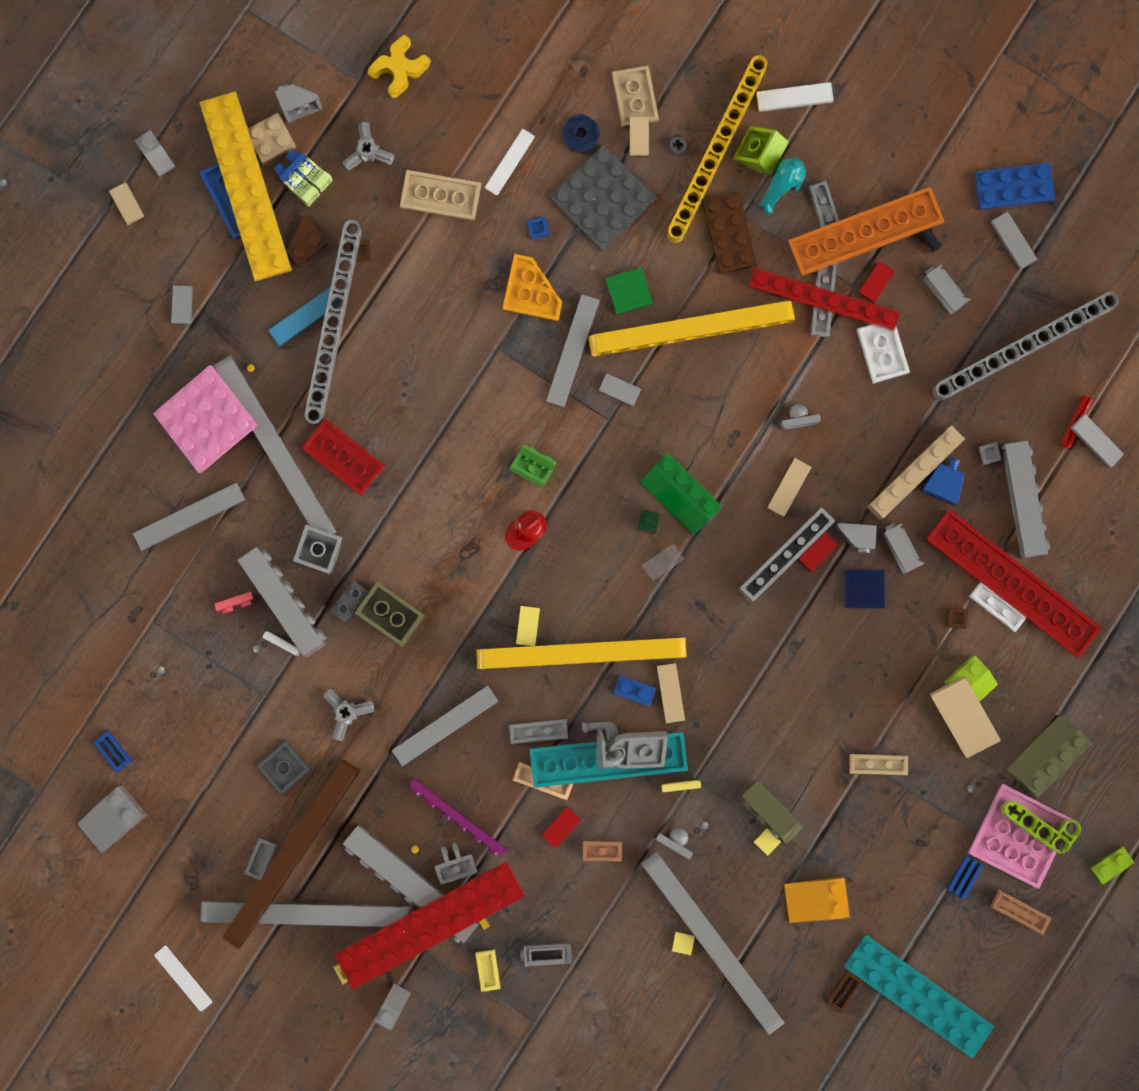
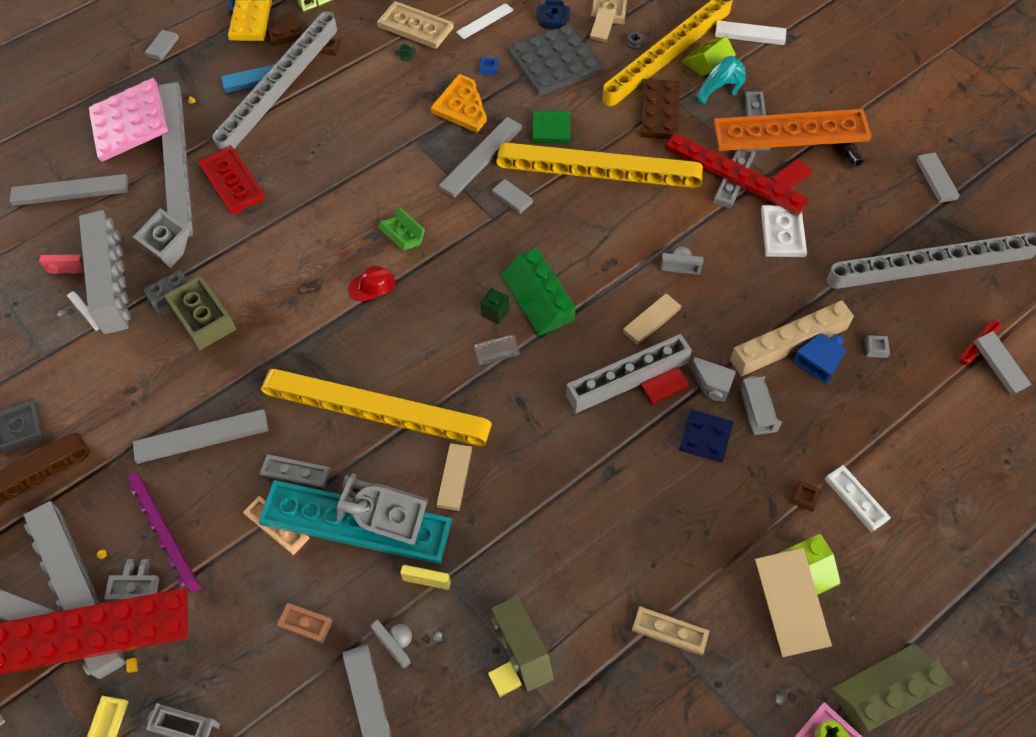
camera: 25 degrees right, 25 degrees down
(356, 710) = (107, 391): light grey bush -> none
(445, 241) = (405, 52): none -> clear green plate
(527, 626) = (334, 365): light yellow tile -> none
(561, 827) = (271, 582): red tile -> none
(634, 690) = (416, 462): blue plate -> none
(945, 289) = (860, 196): light grey window -> none
(1013, 583) = (885, 481): red plate -> none
(1014, 186) = (945, 138): blue plate -> none
(1024, 499) = (910, 398): light grey brick -> none

